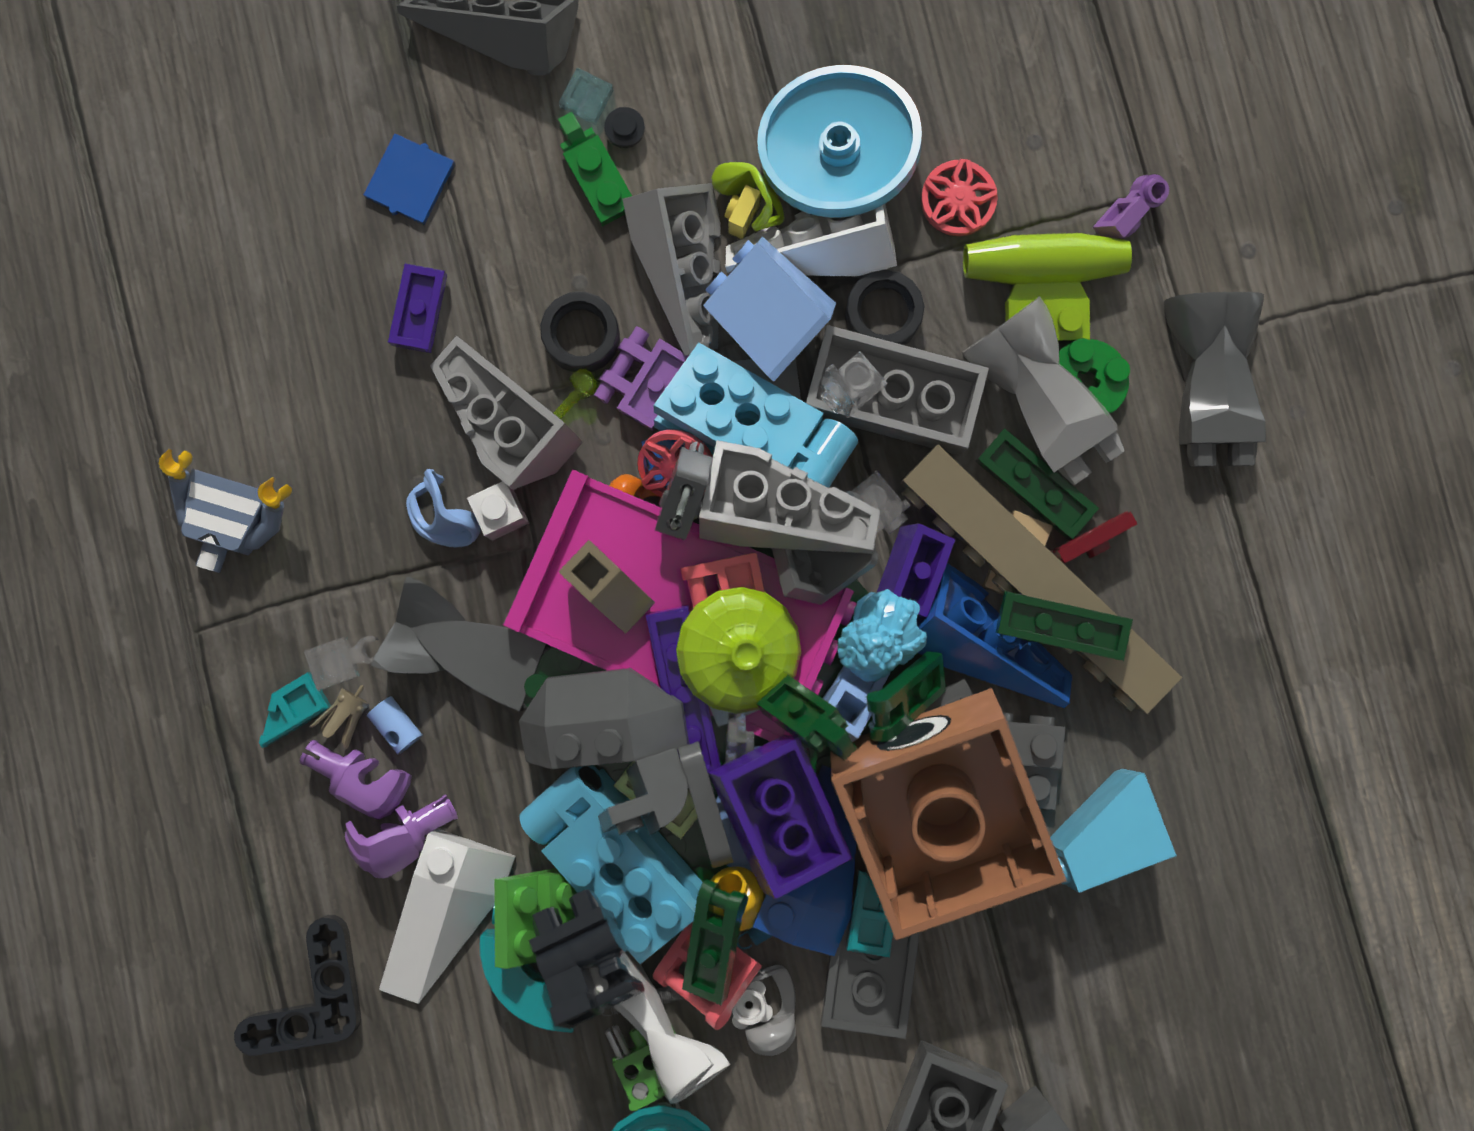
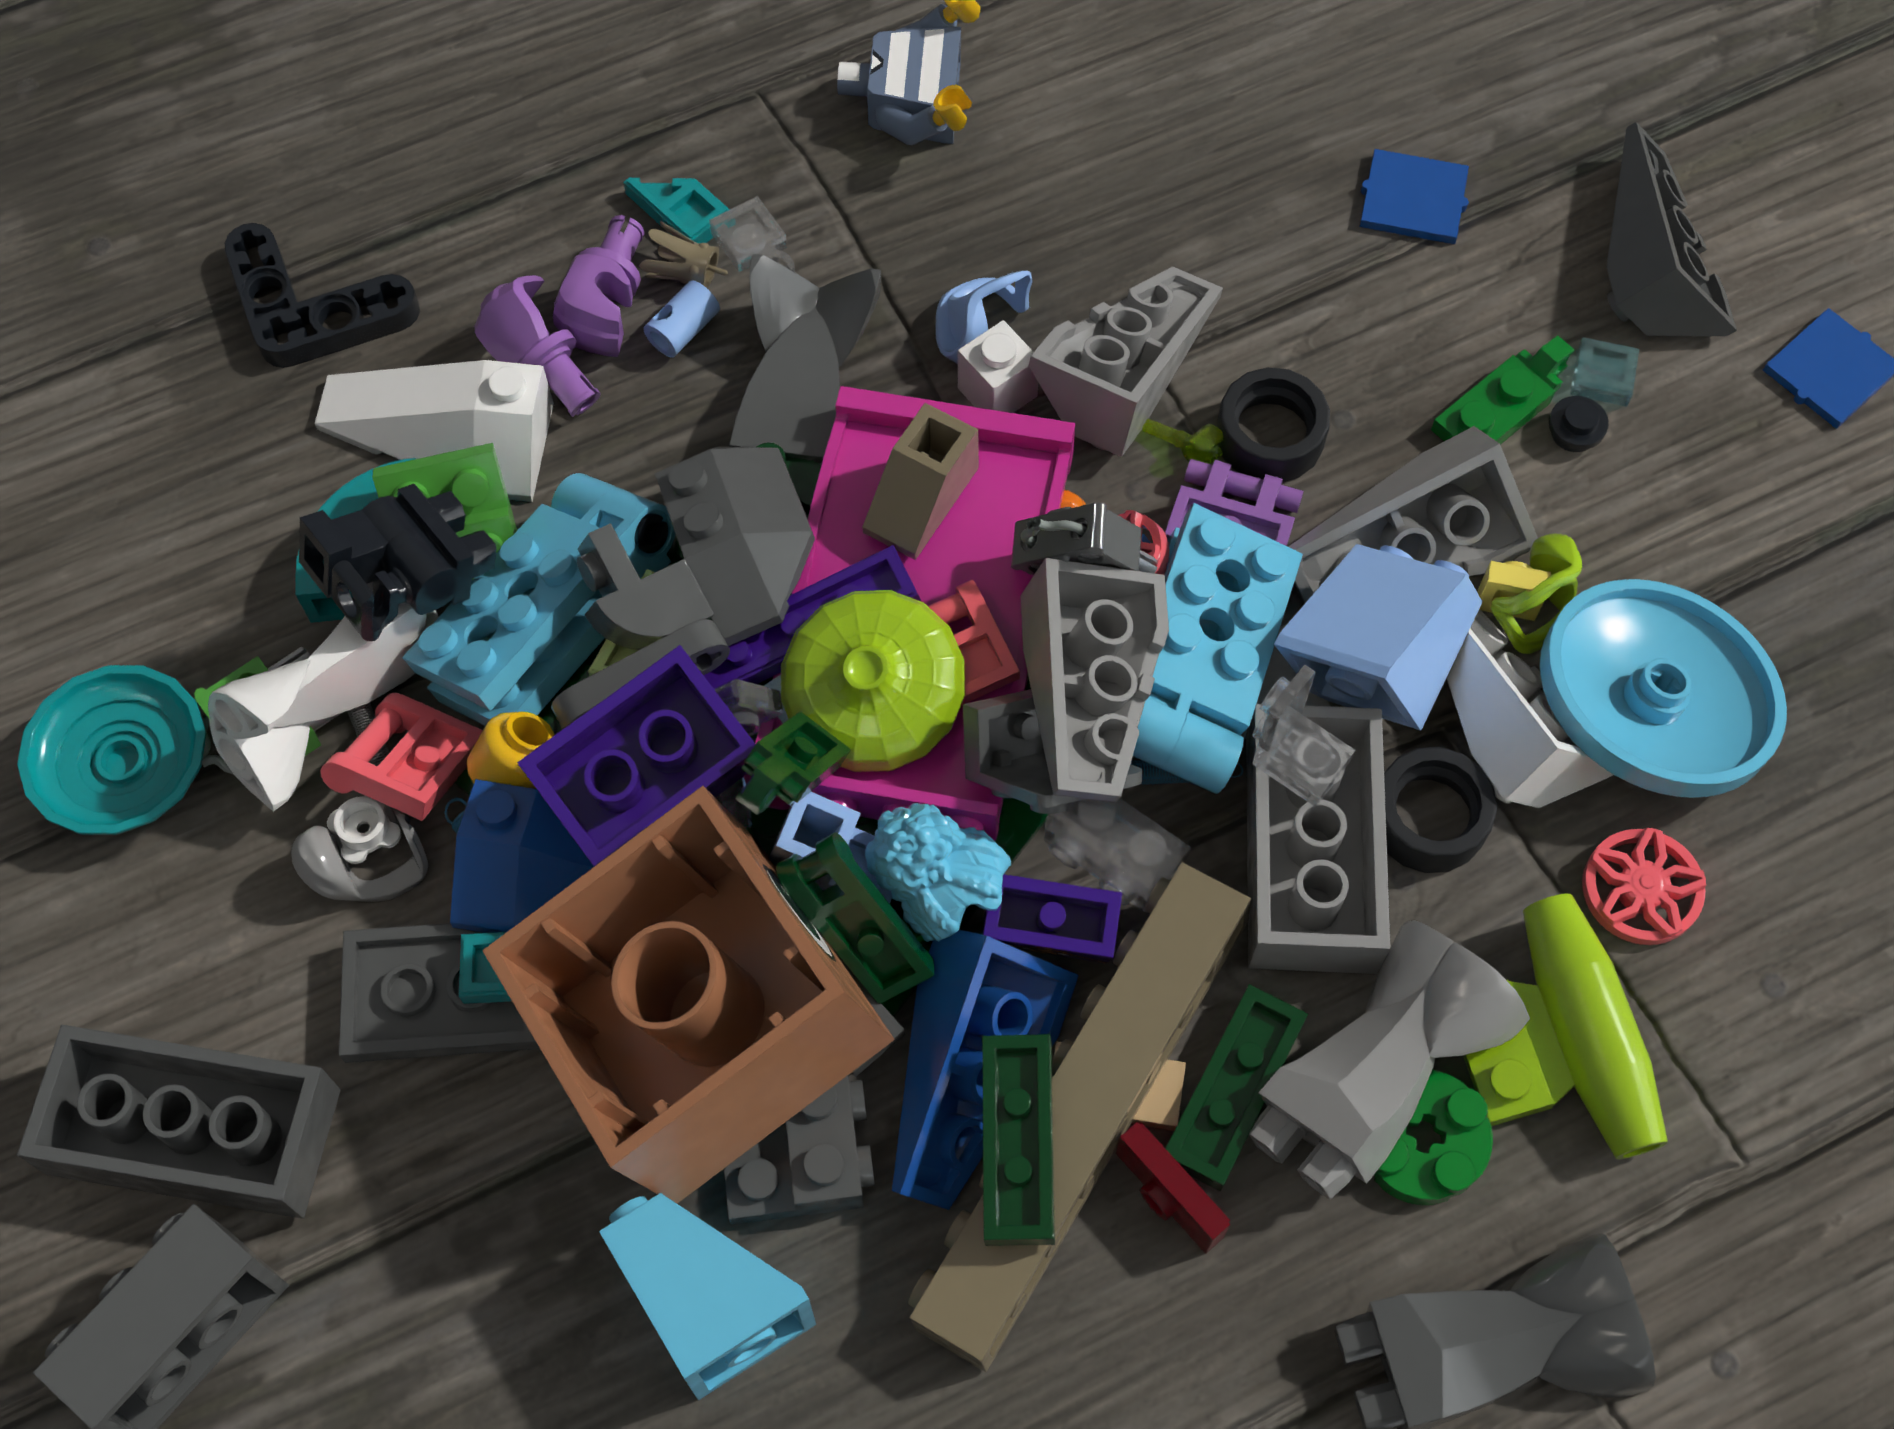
camera: 80 degrees right, 20 degrees down
(417, 308) = (1244, 233): dark purple plate -> none
(713, 942) = (446, 721): dark green plate -> none
(1125, 214) = (1702, 1134): medium lavender plate -> none

